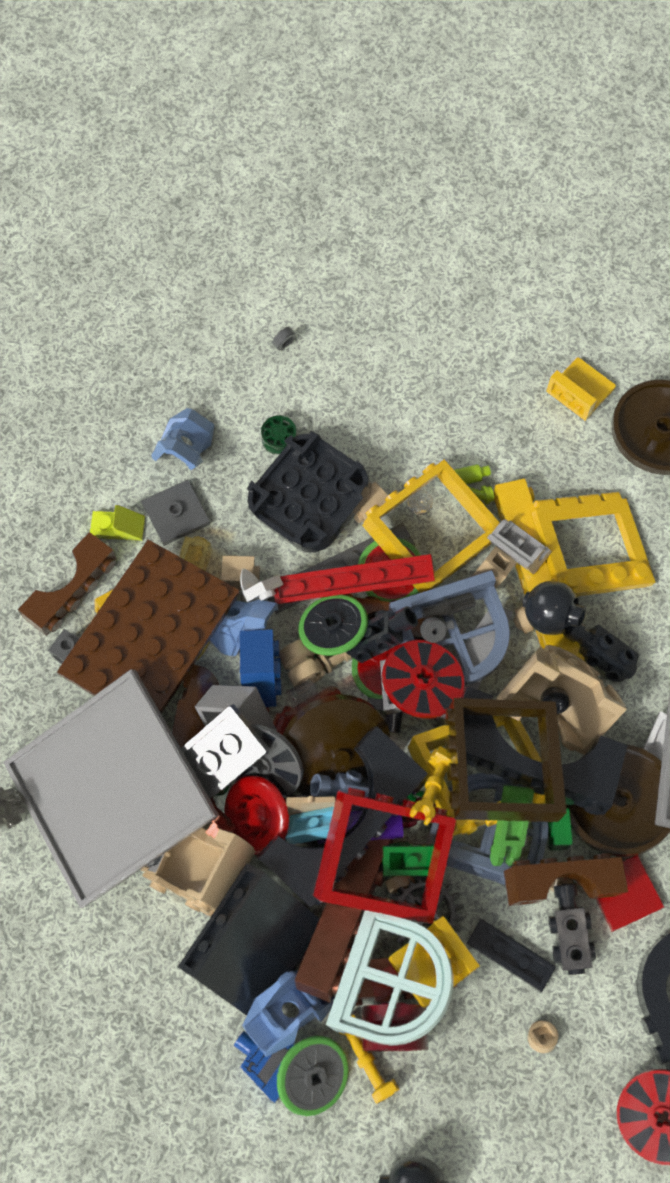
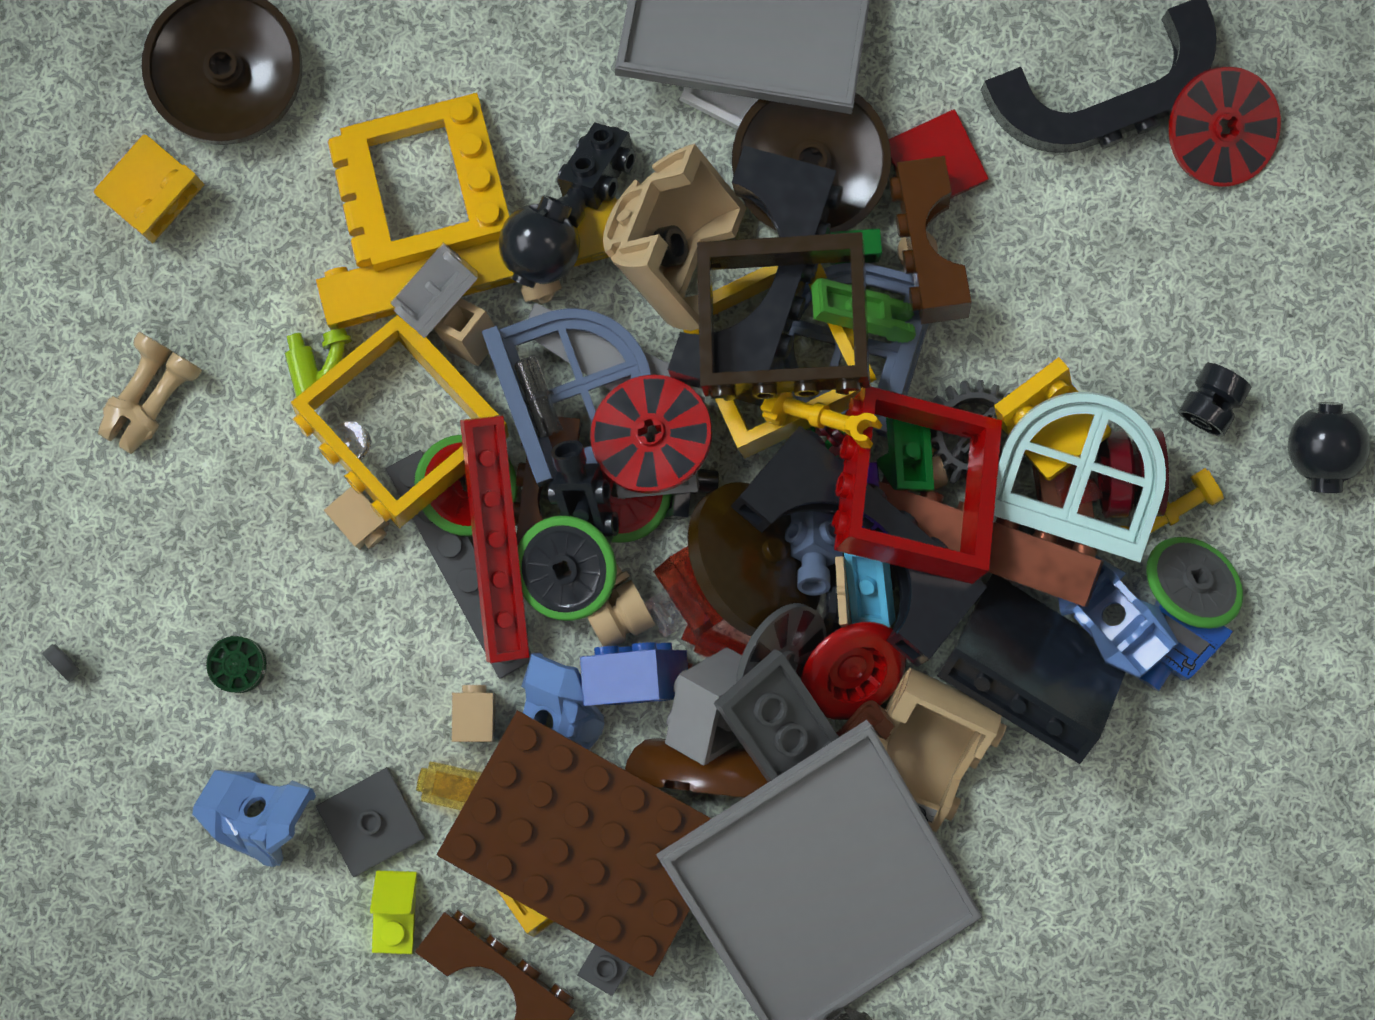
camera: 90 degrees left, 15 degrees up
(254, 589) = (512, 684): white plate -> none
(309, 492) = (341, 612): black tile -> none
(436, 373) = (127, 404): none -> tan piece
(439, 629) = (574, 416): dark grey piece -> none
(461, 1104) = (1216, 385): none -> black wheel
(511, 955) = (1024, 318): black tile -> none
(542, 1036) = (1129, 278): tan tile -> none
(571, 939) = (1005, 237): black brick -> none

